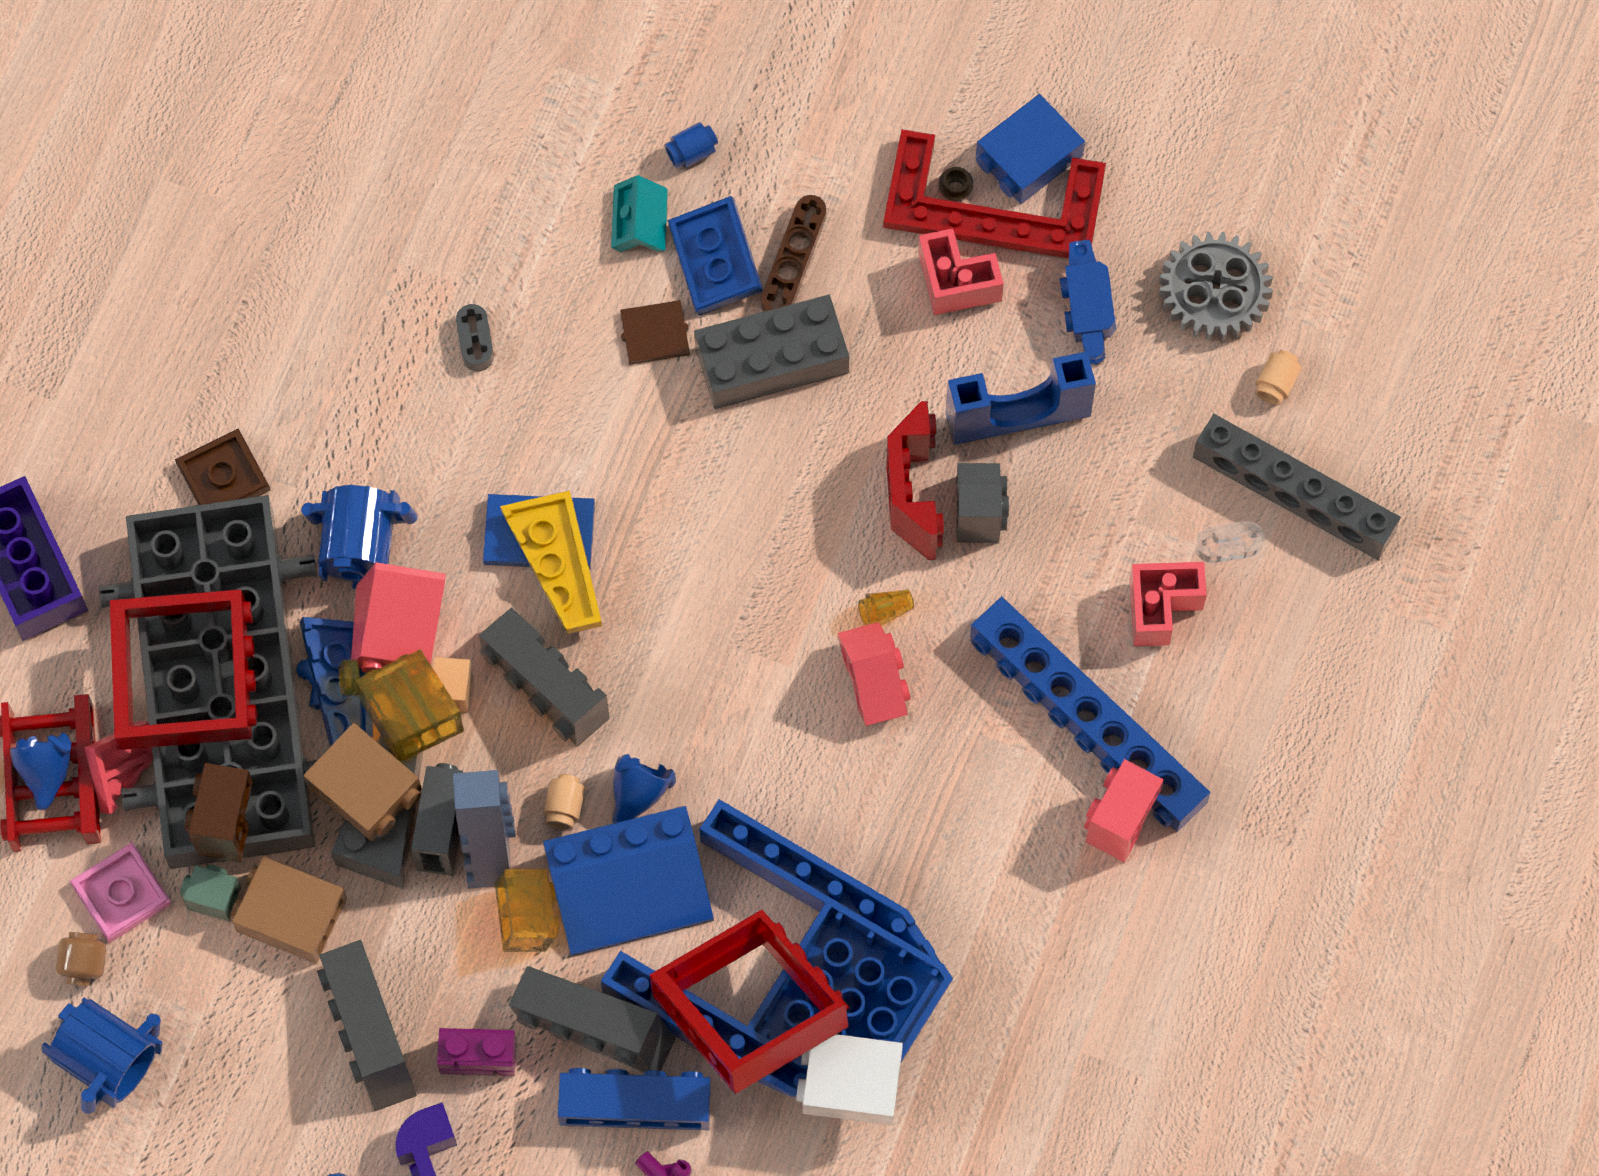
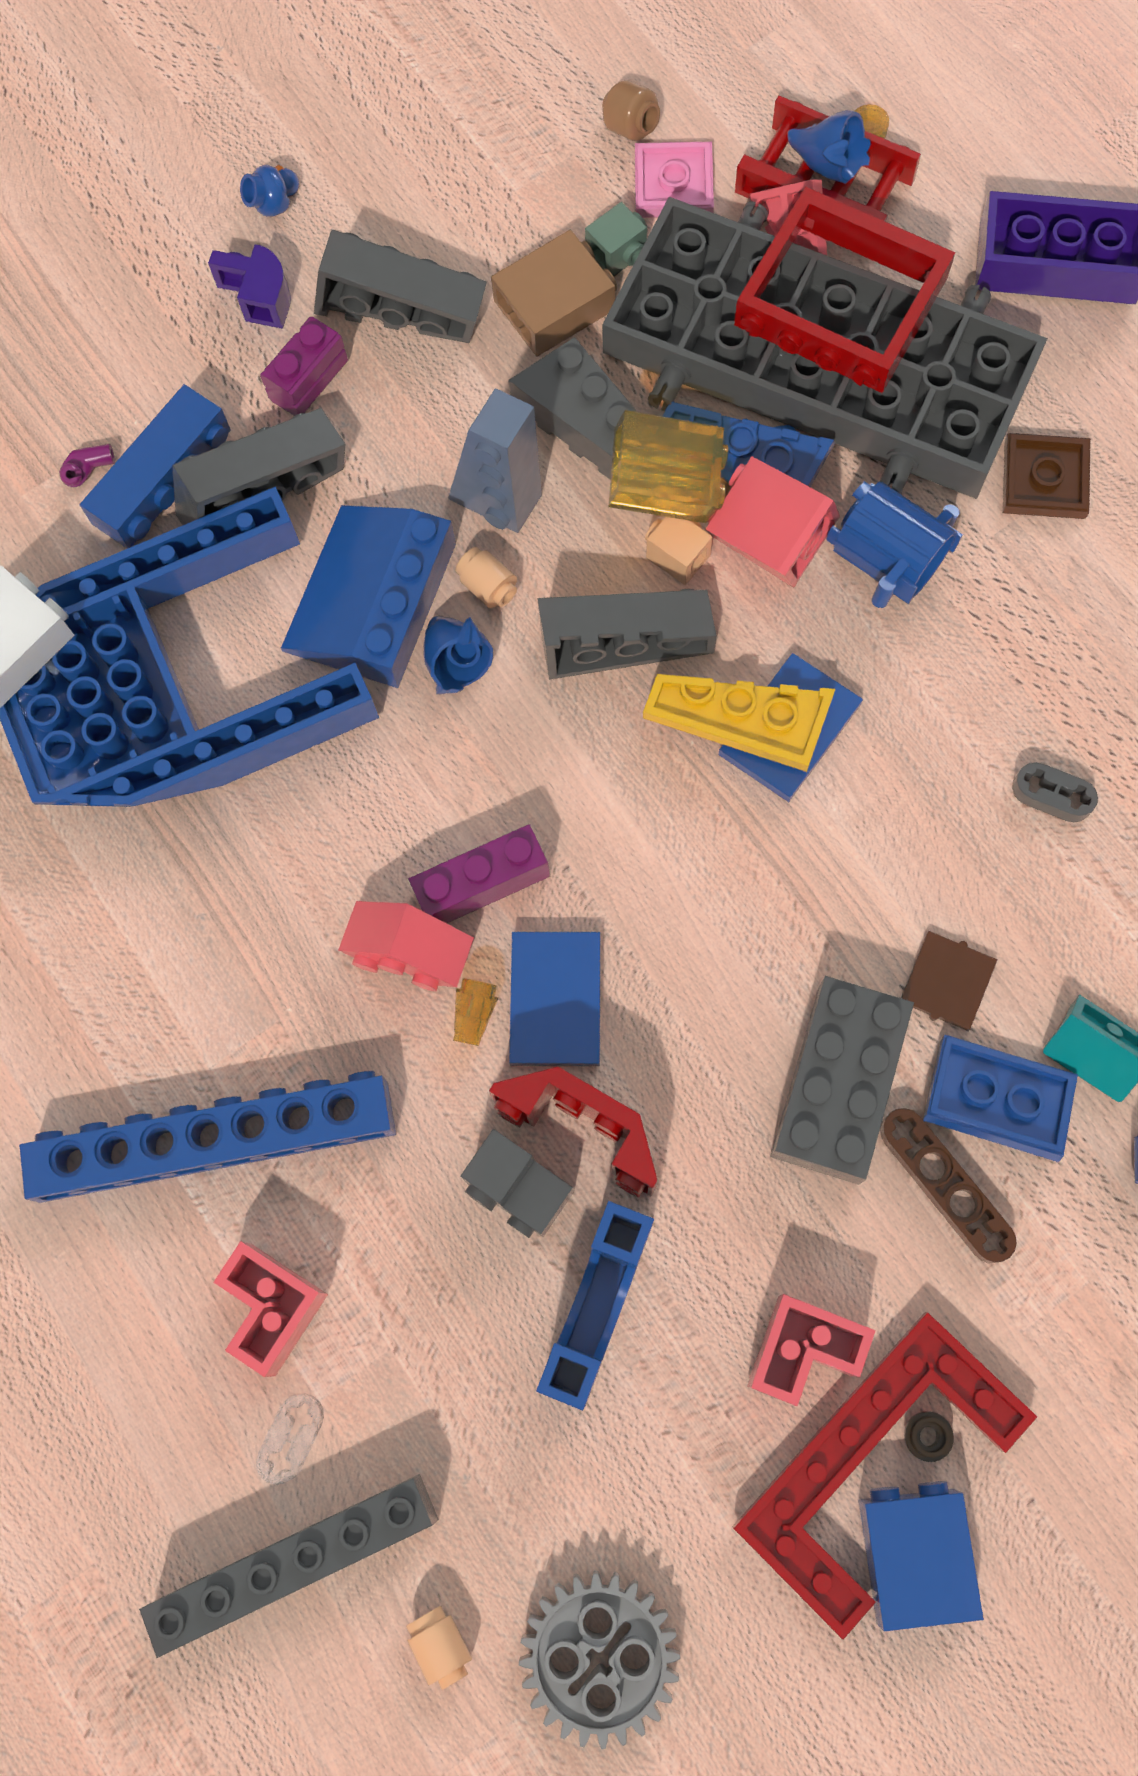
camera: 130 degrees right, 5 degrees up
(103, 1052) = (526, 73): blue container -> none
(218, 818) = (661, 226): reddish brown brick -> none
(347, 675) = (741, 444): clear yellow tile -> none
(363, 783) = (612, 375): medium nougat brick -> none
(436, 826) = (562, 455): dark grey brick -> none
(526, 910) = (401, 477): clear yellow brick -> none
(719, 952) = (142, 512): red window -> none
(792, 658) = (481, 875): none -> magenta brick
(839, 563) = (555, 999): none -> blue tile
(1090, 300) = (676, 1486): blue hinge -> none
(1120, 815) = (68, 1088): coral brick -> none

